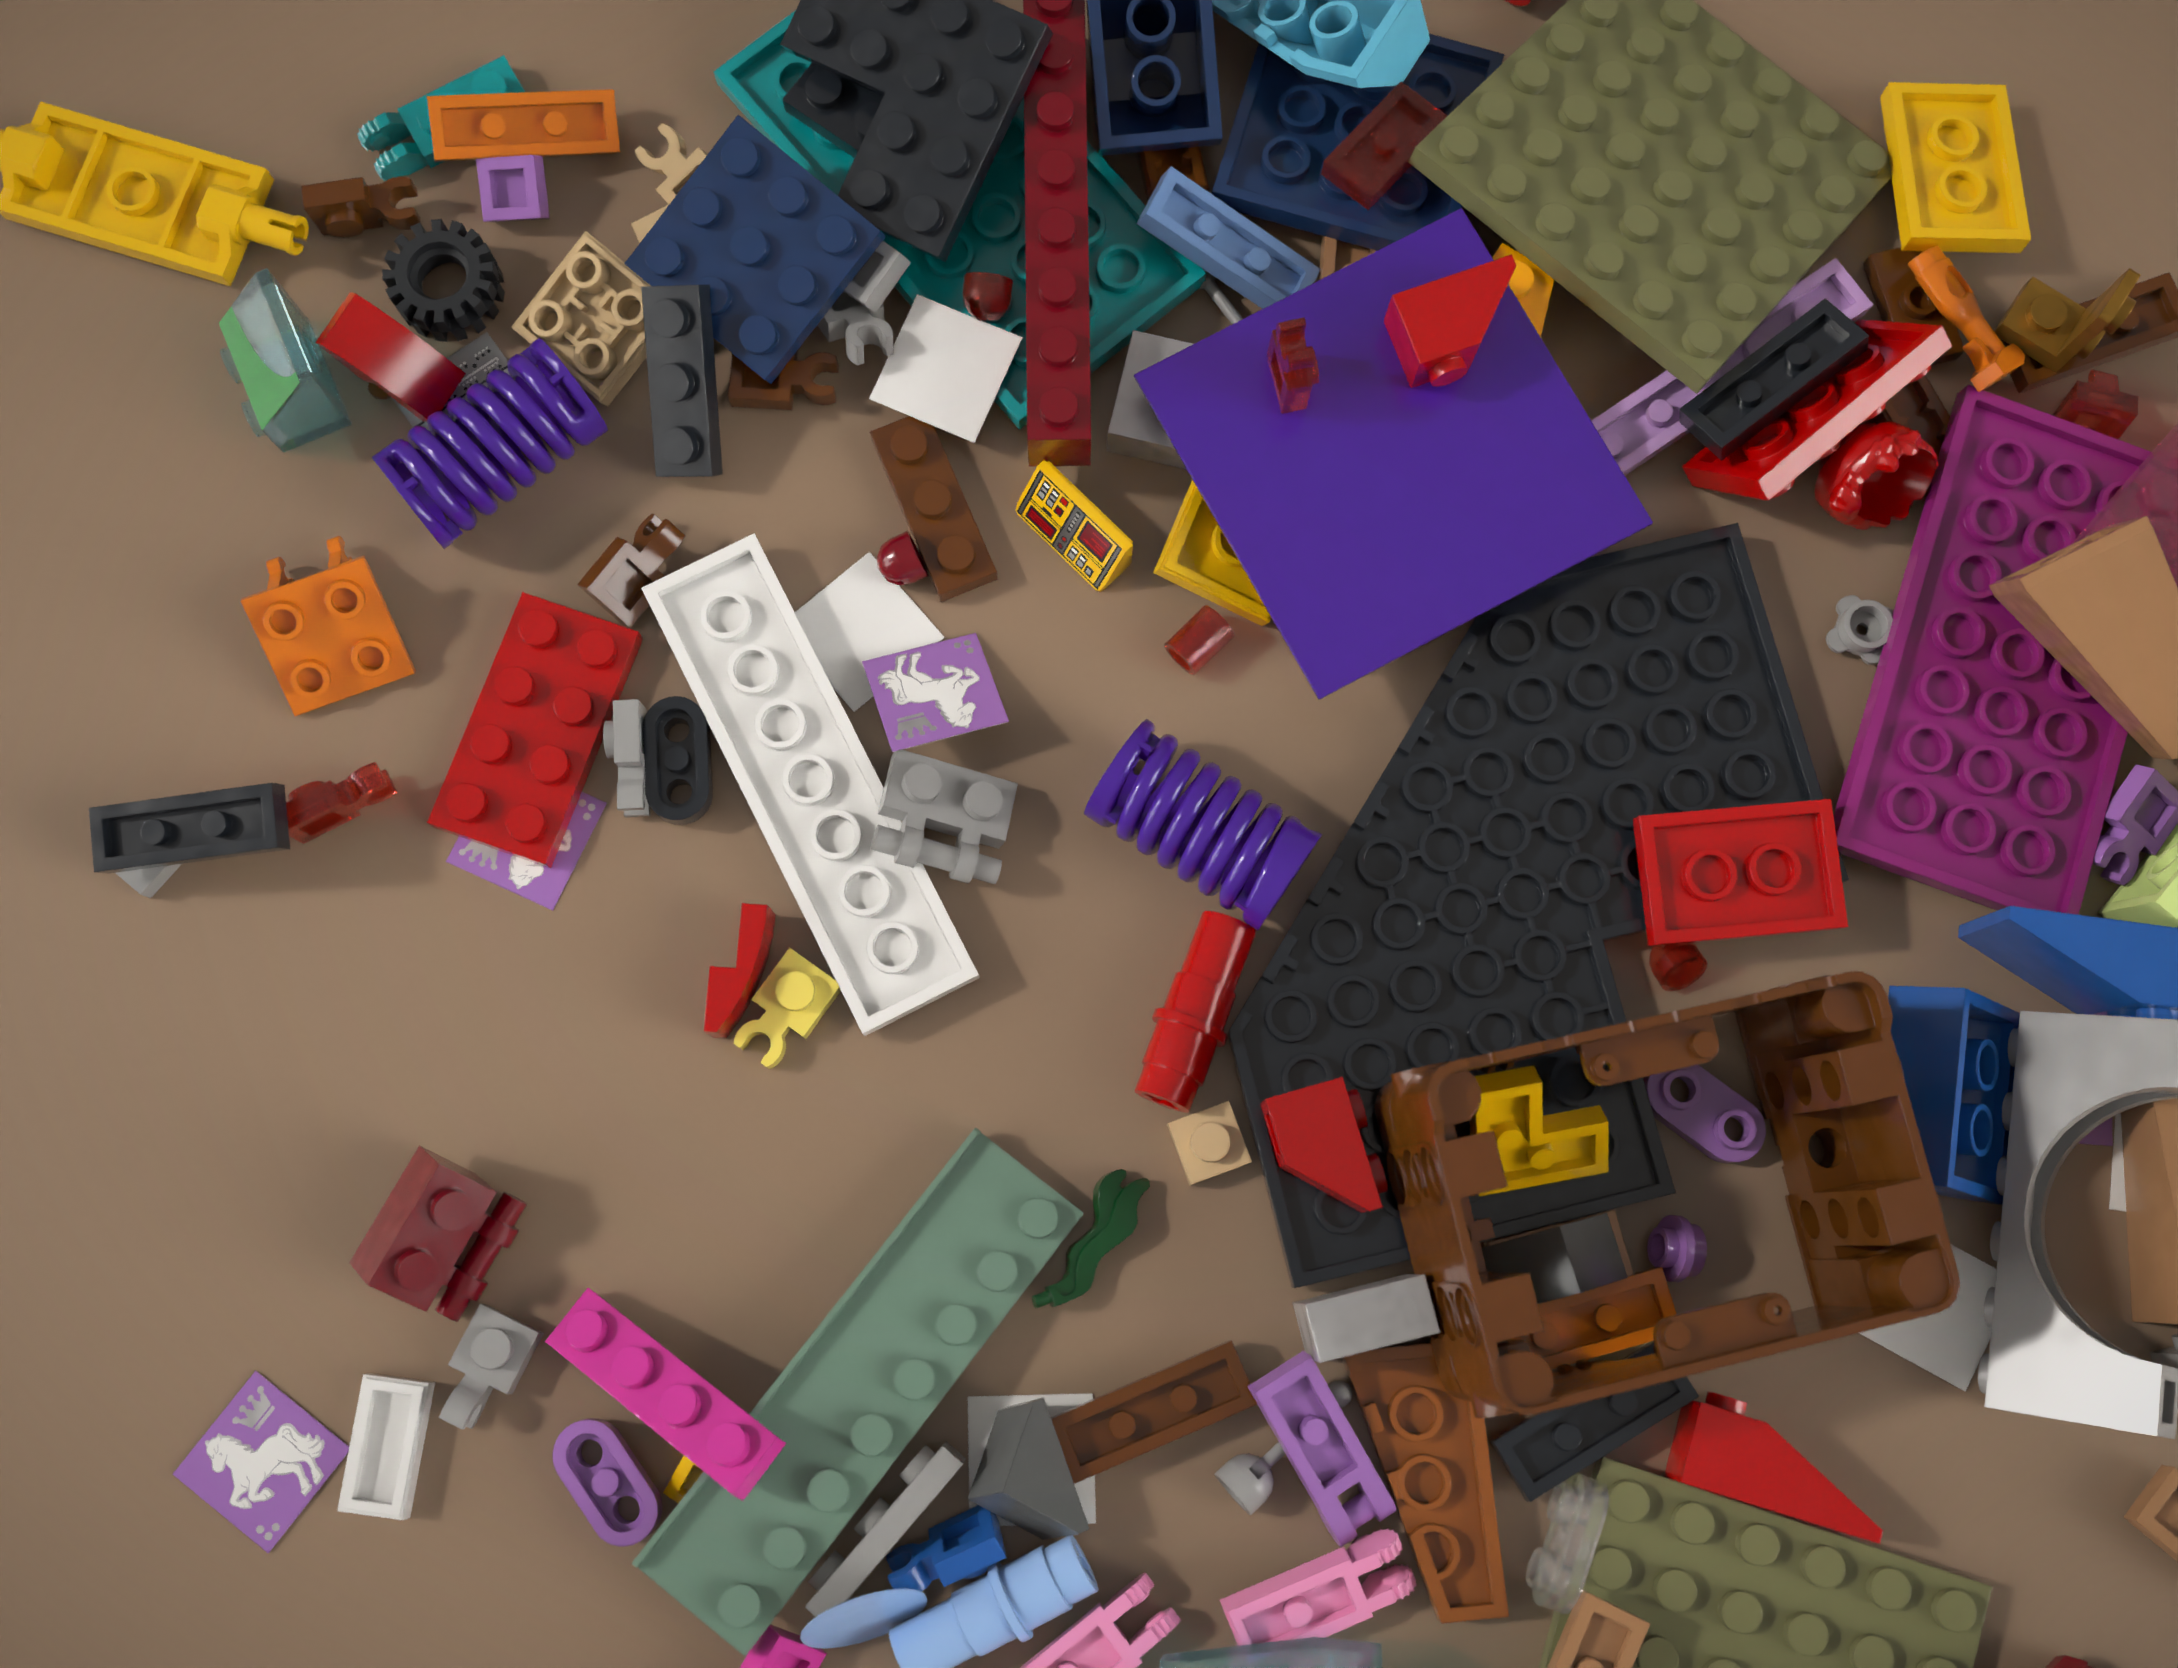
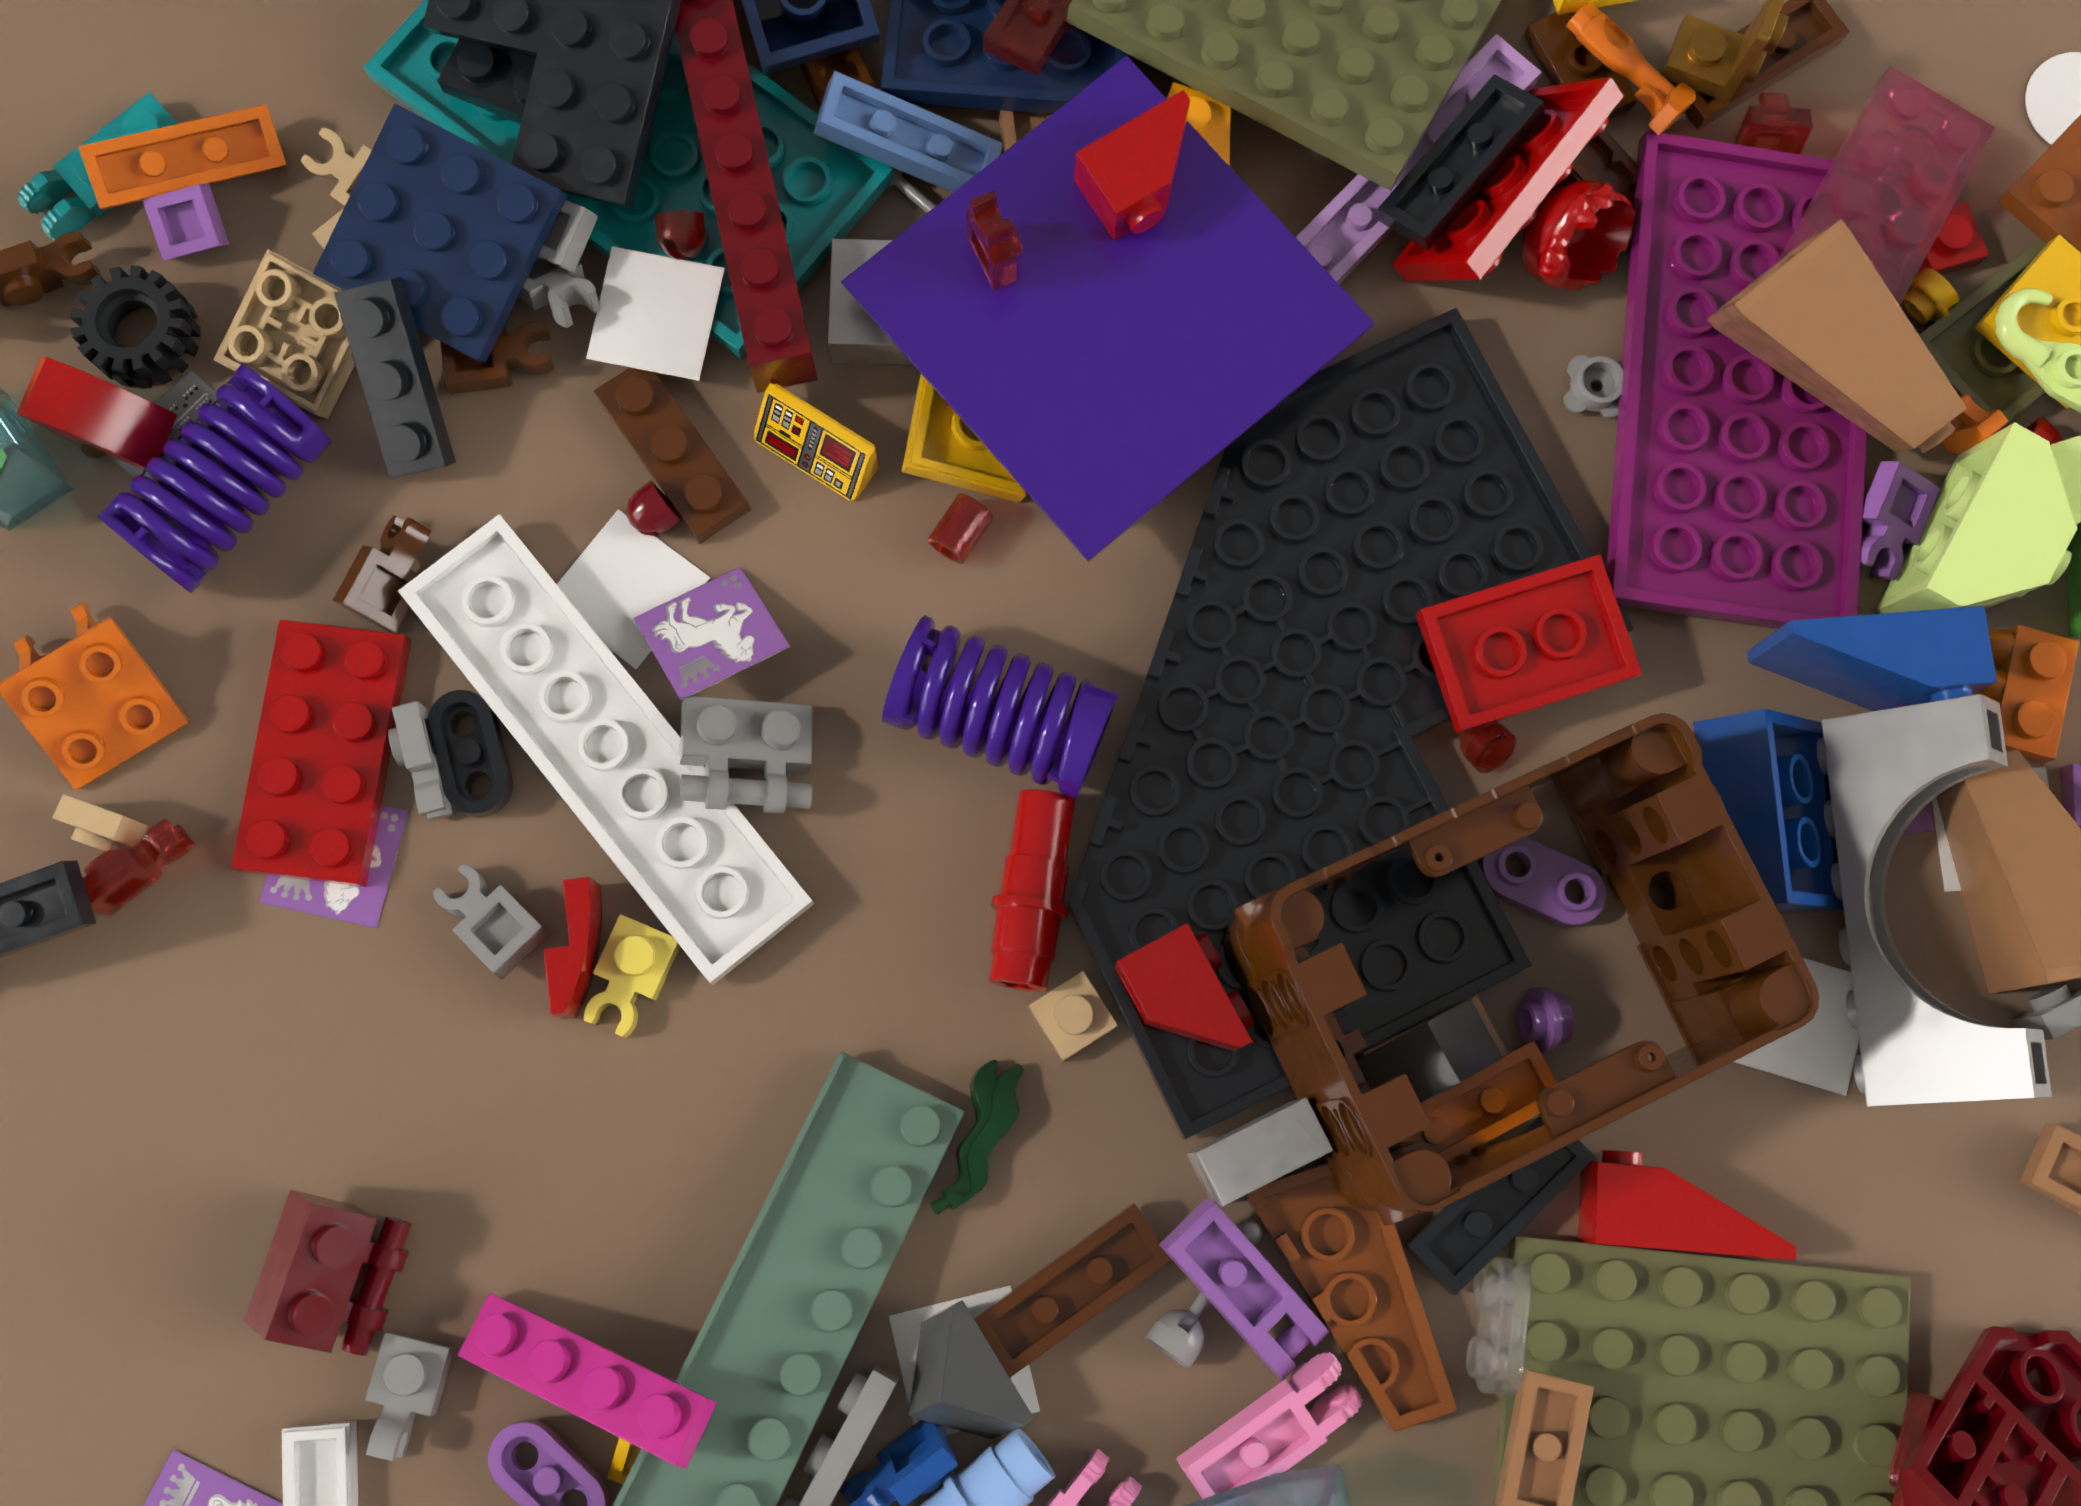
camera: 15 degrees left, 0 degrees up
(310, 755) = (97, 825): none -> tan plate
(667, 932) = (492, 925): none -> light grey plate
(1538, 1146) = (1384, 949): yellow plate -> none

